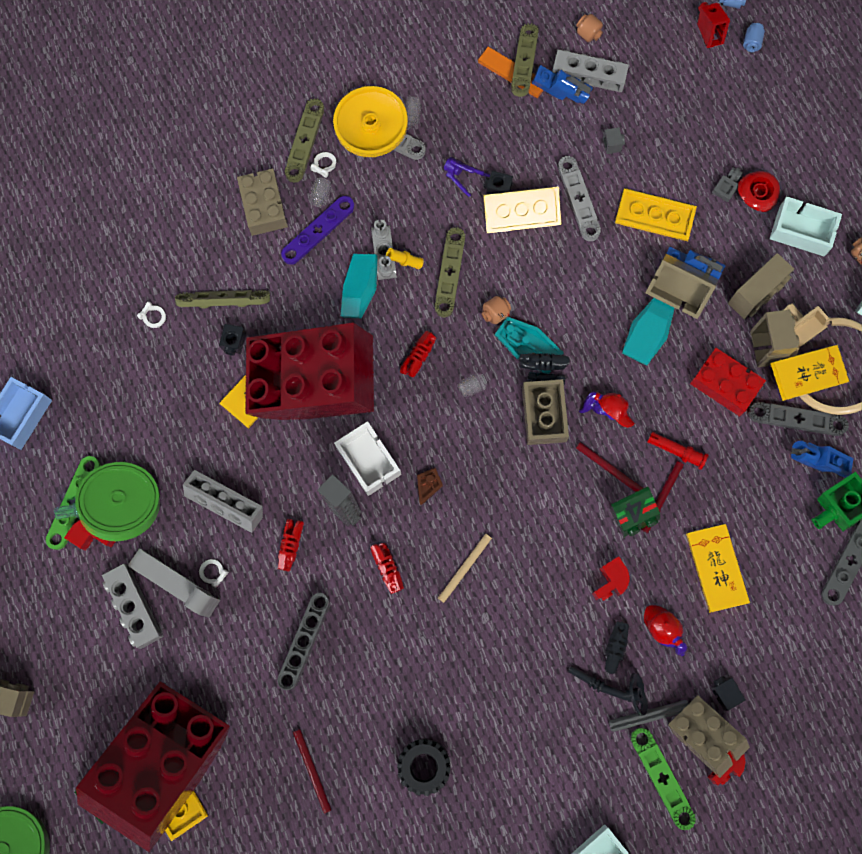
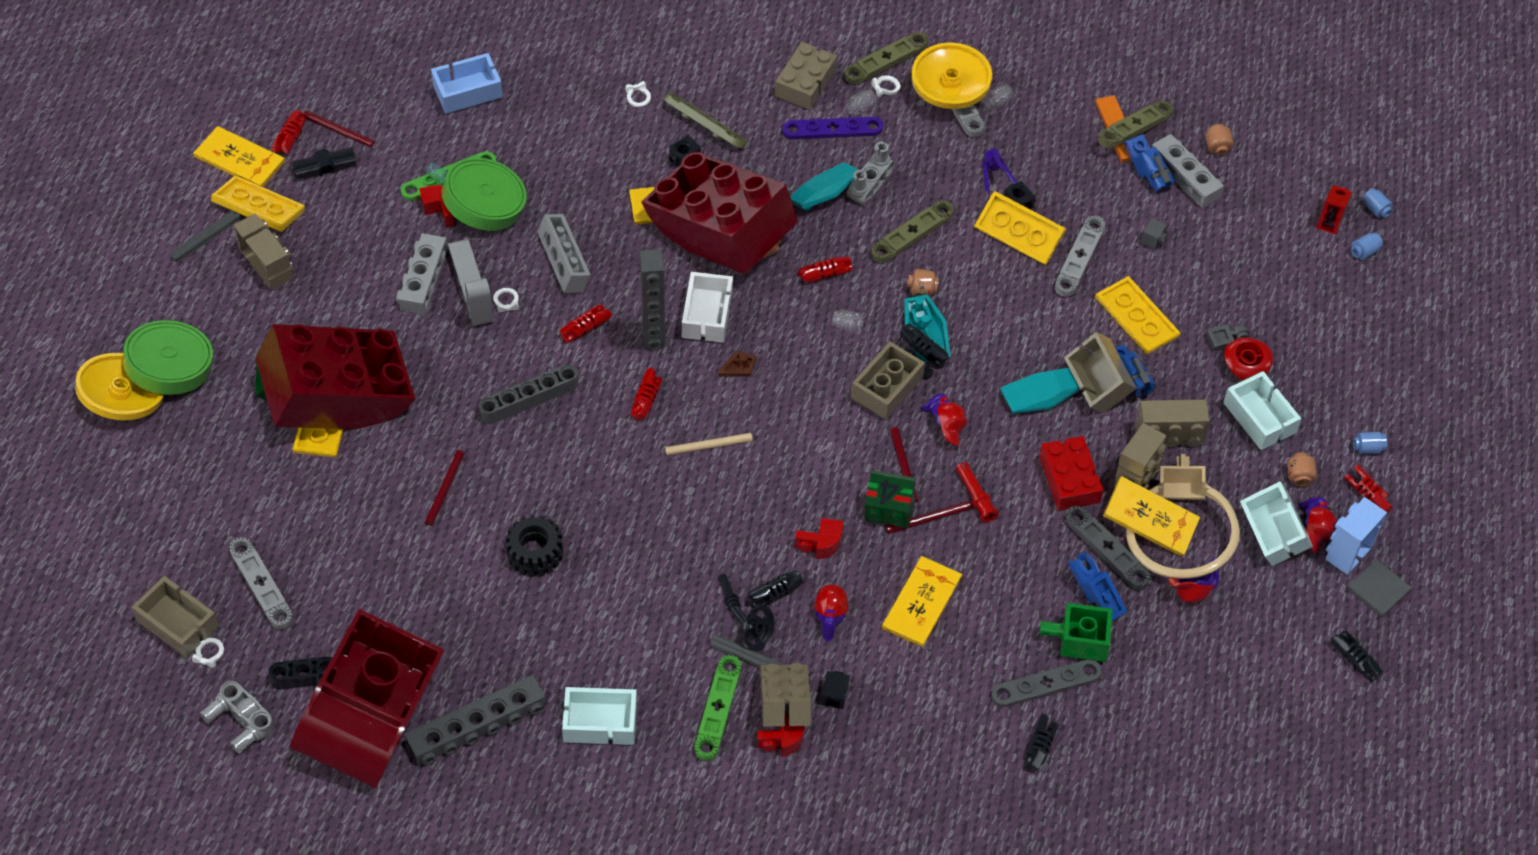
camera: 35 degrees right, 20 degrees down
(404, 258) = (882, 192): yellow pin -> none

